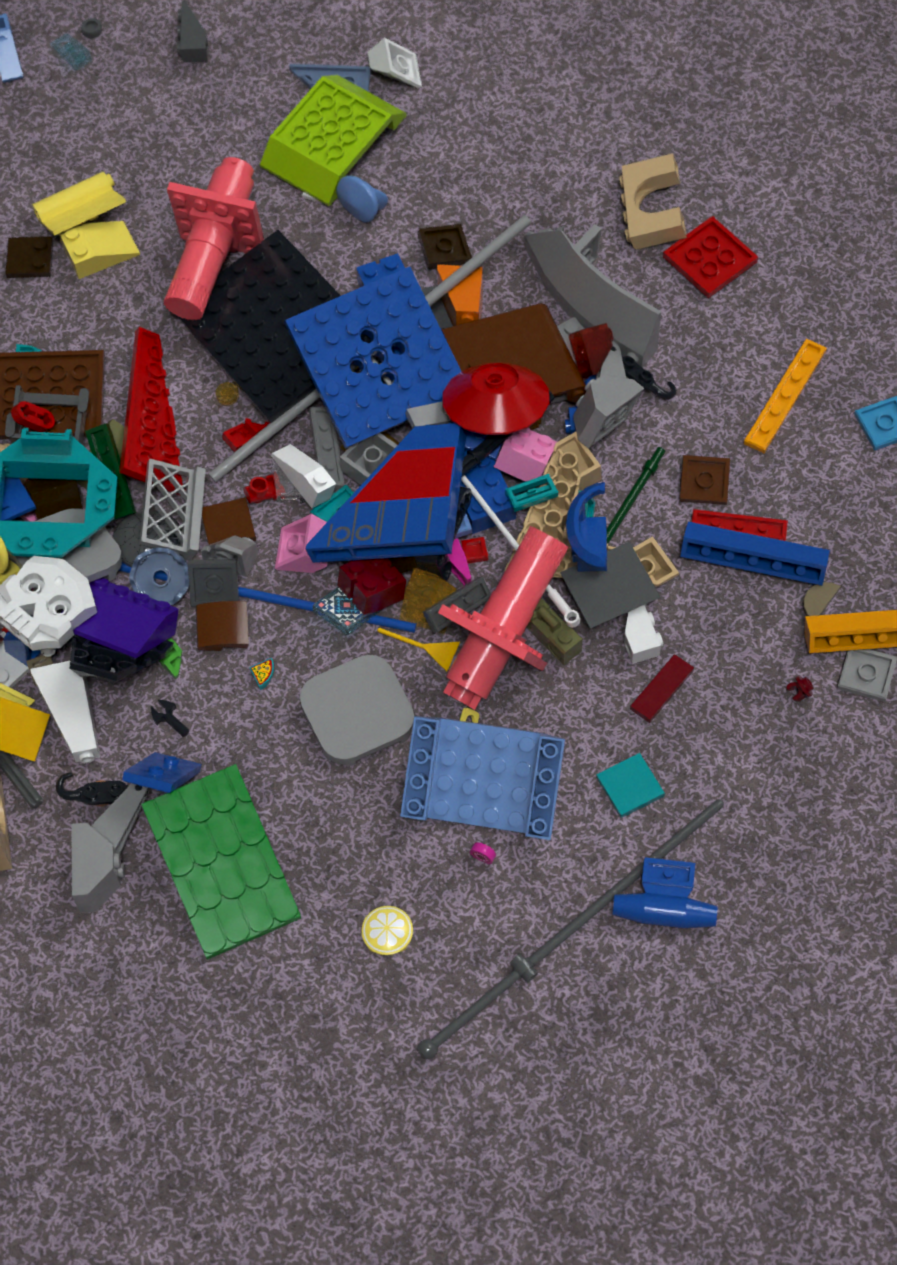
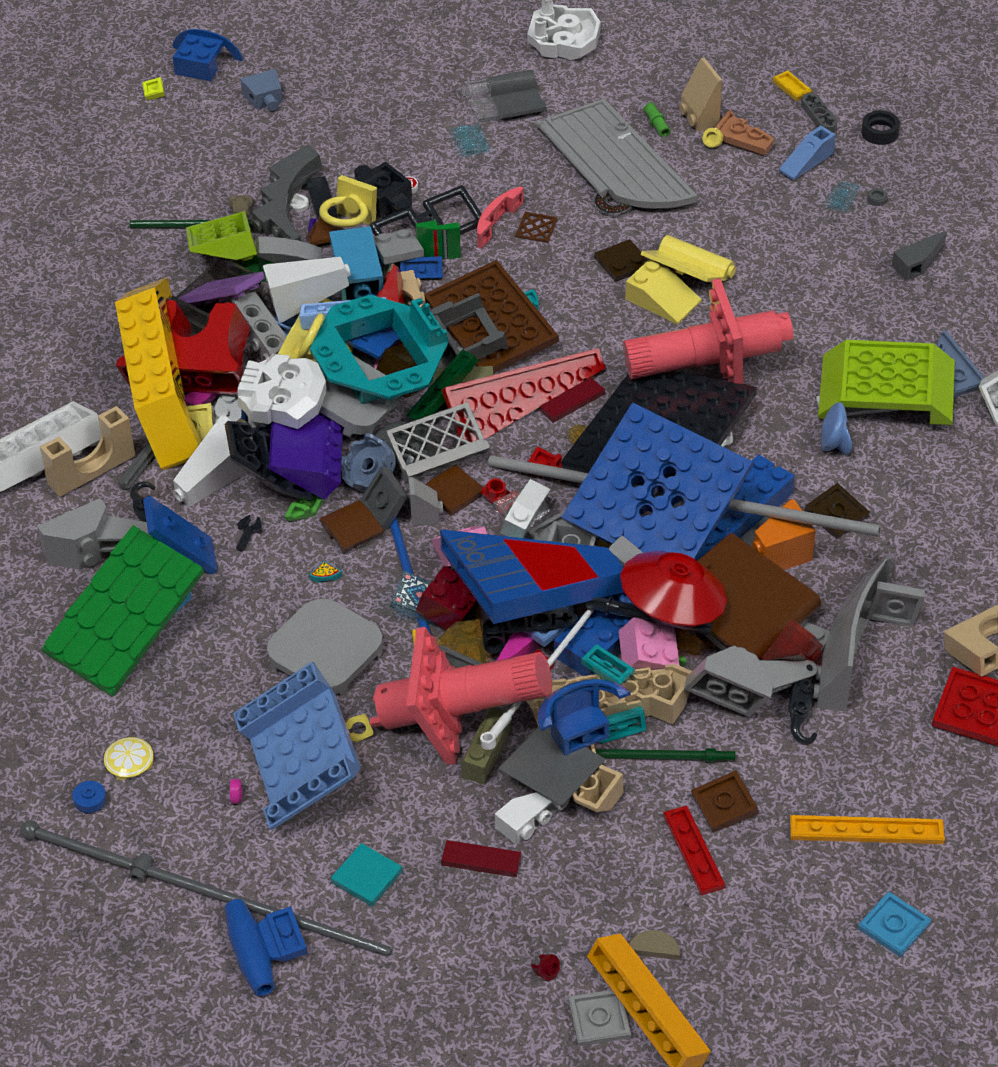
camera: 60 degrees right, 15 degrees down
(33, 416) = (456, 321): red beam -> none
(179, 379) = (572, 400): none -> dark red tile
(416, 982) = (89, 796): none -> blue wheel
(755, 553) = (666, 869): blue brick -> none

